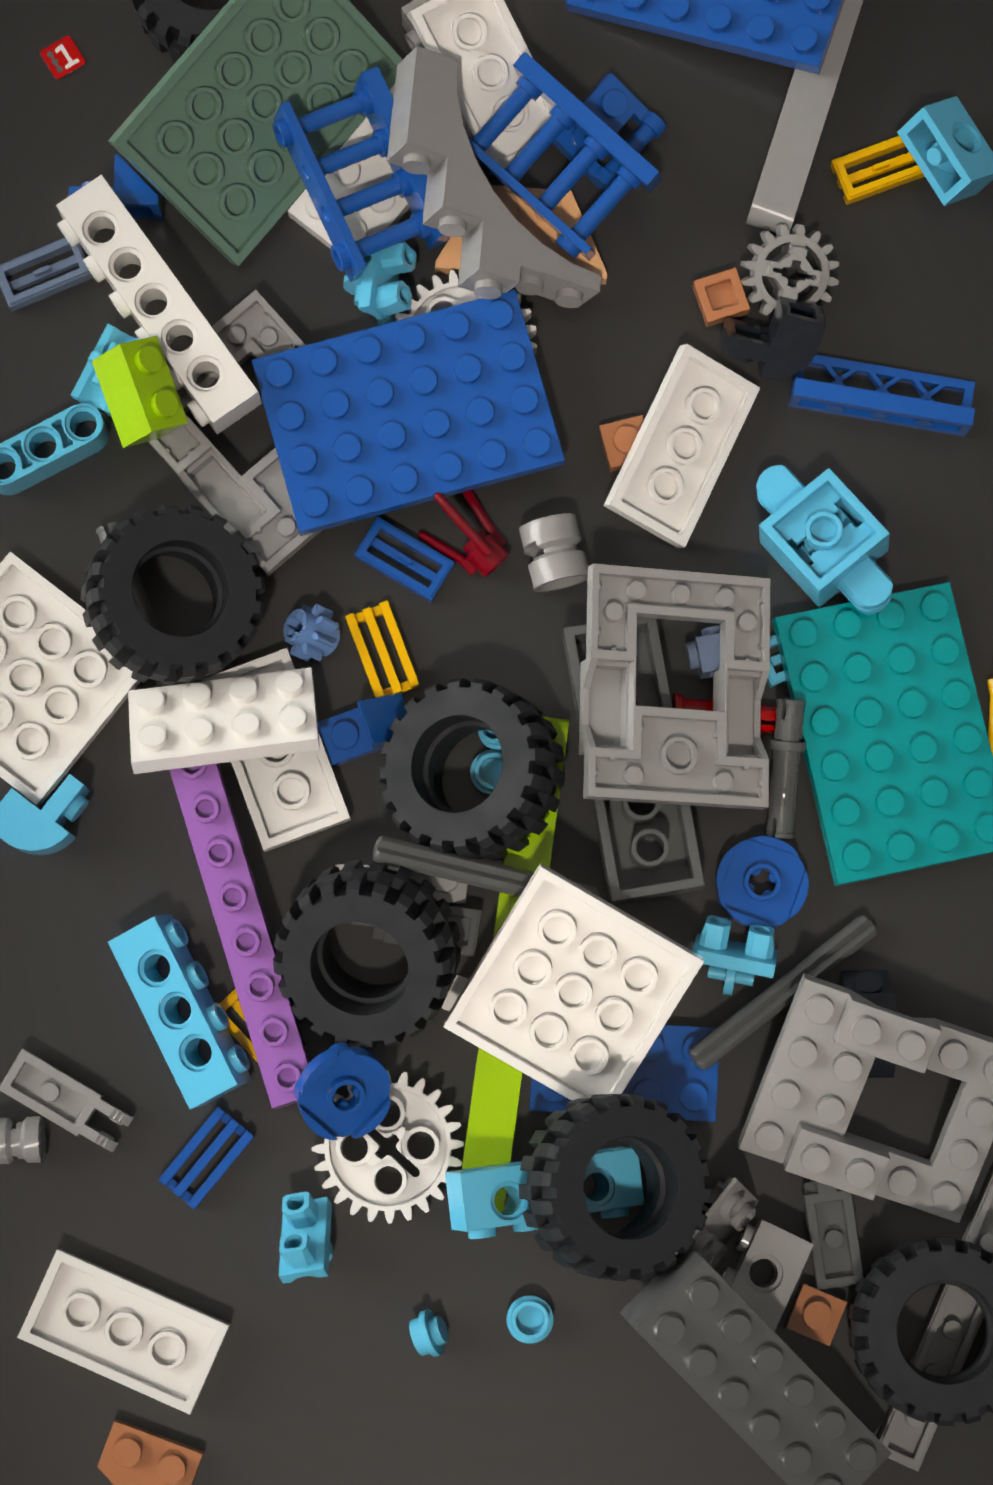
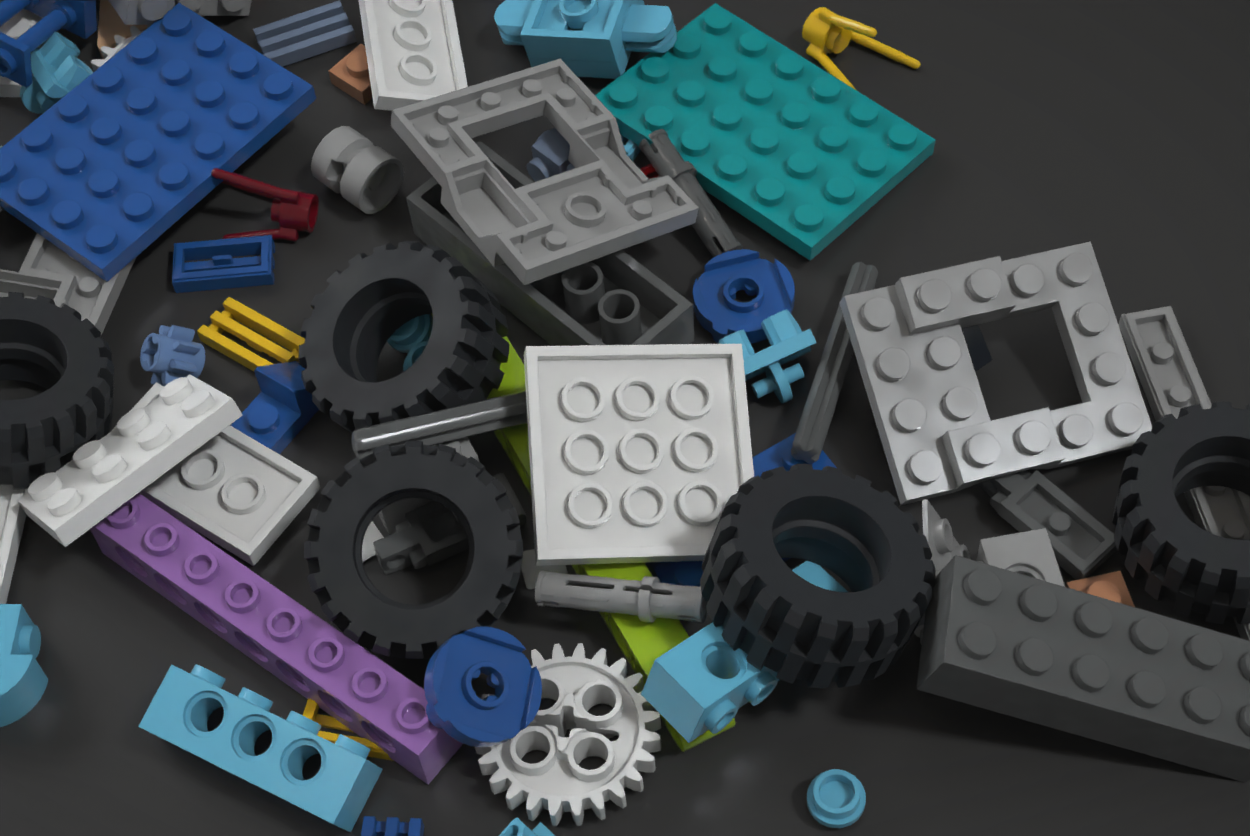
camera: 30 degrees left, 25 degrees down
(524, 1126) = (642, 598): none -> light grey pin
(611, 352) = (311, 31): none -> sand blue tile

